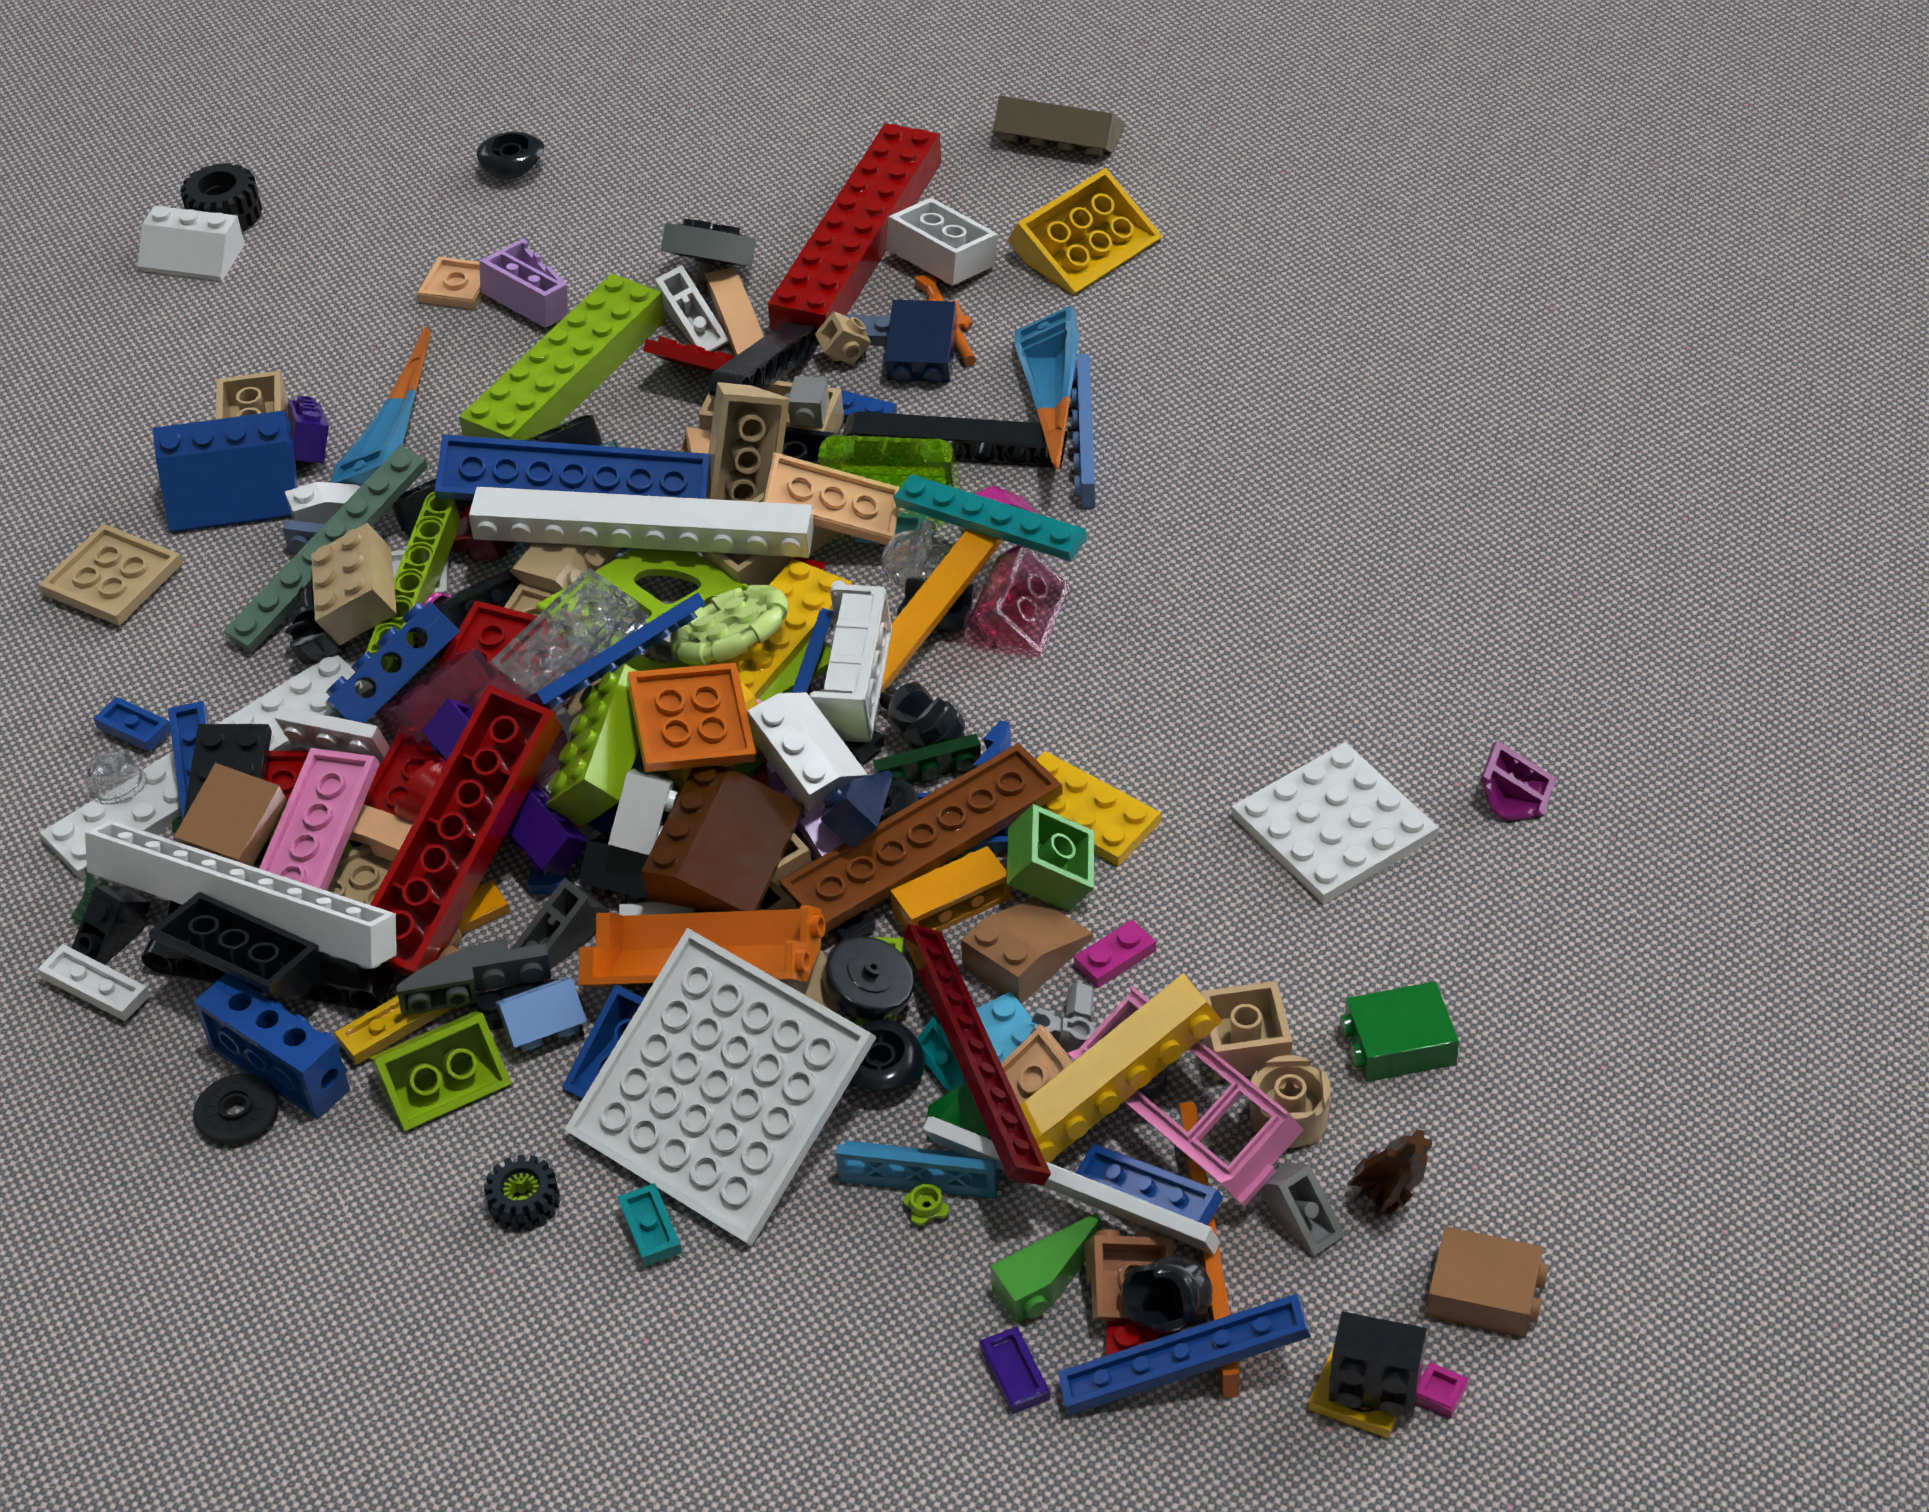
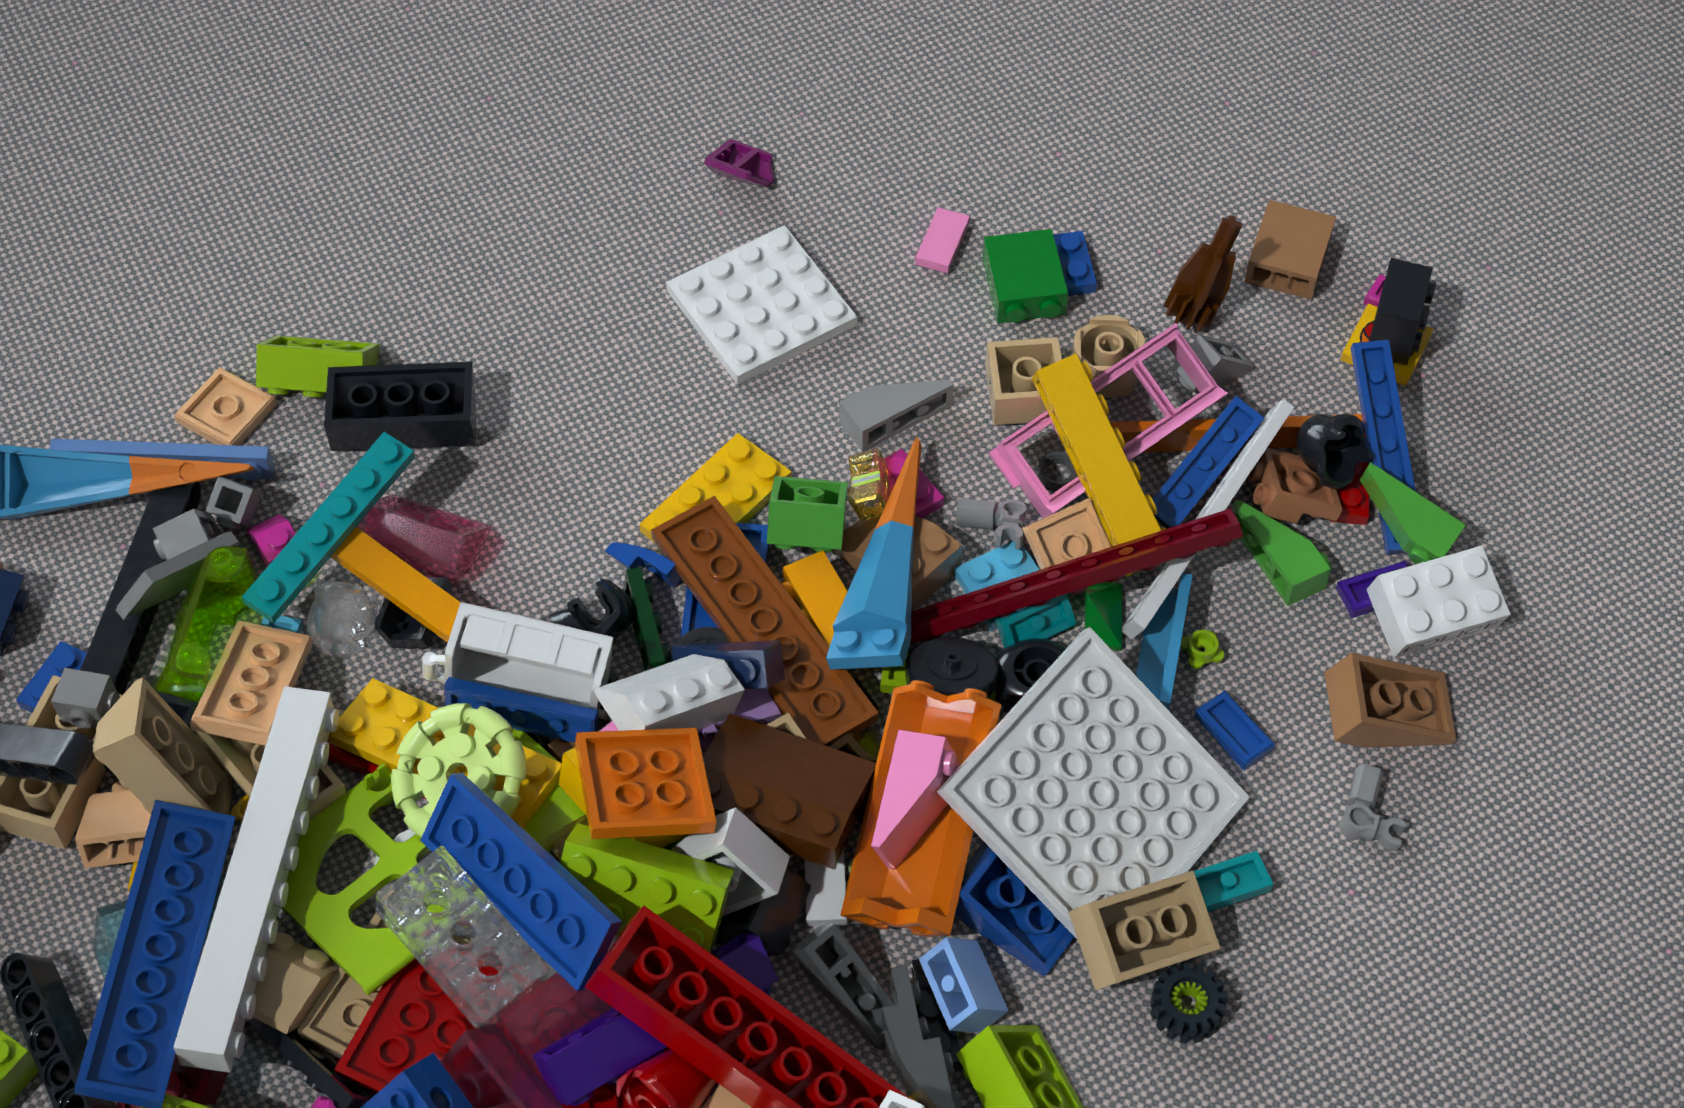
camera: 90 degrees left, 10 degrees up
(579, 1135) = (1144, 930): none -> tan brick
(713, 912) = (910, 797): none -> bright pink slope
(722, 1341) = (1359, 819): none -> light grey bar
(830, 1236) = (1234, 730): none -> blue tile
(856, 1369) = (1388, 704): none -> medium nougat slope
(926, 426) = (169, 577): none -> light grey tile
(933, 906) = (876, 611): none -> dark azure plate
(982, 1408) = (1438, 601): none -> white brick
(990, 451) = (184, 533): none -> light grey slope
(1035, 474) = (233, 502): none -> light grey brick
(1081, 1375) = (1415, 522): none -> bright green slope
(1099, 910) = (868, 482): none -> clear yellow leg
(1151, 465) = (225, 409): none -> light nougat tile
(1153, 563) = (408, 401): none -> black slope
(1195, 919) = (891, 409): none -> light grey slope
(1204, 509) = (303, 362): none -> lime slope
(1435, 1081) = (1075, 263): none -> blue plate
(1447, 964) = (942, 240): none -> bright pink tile

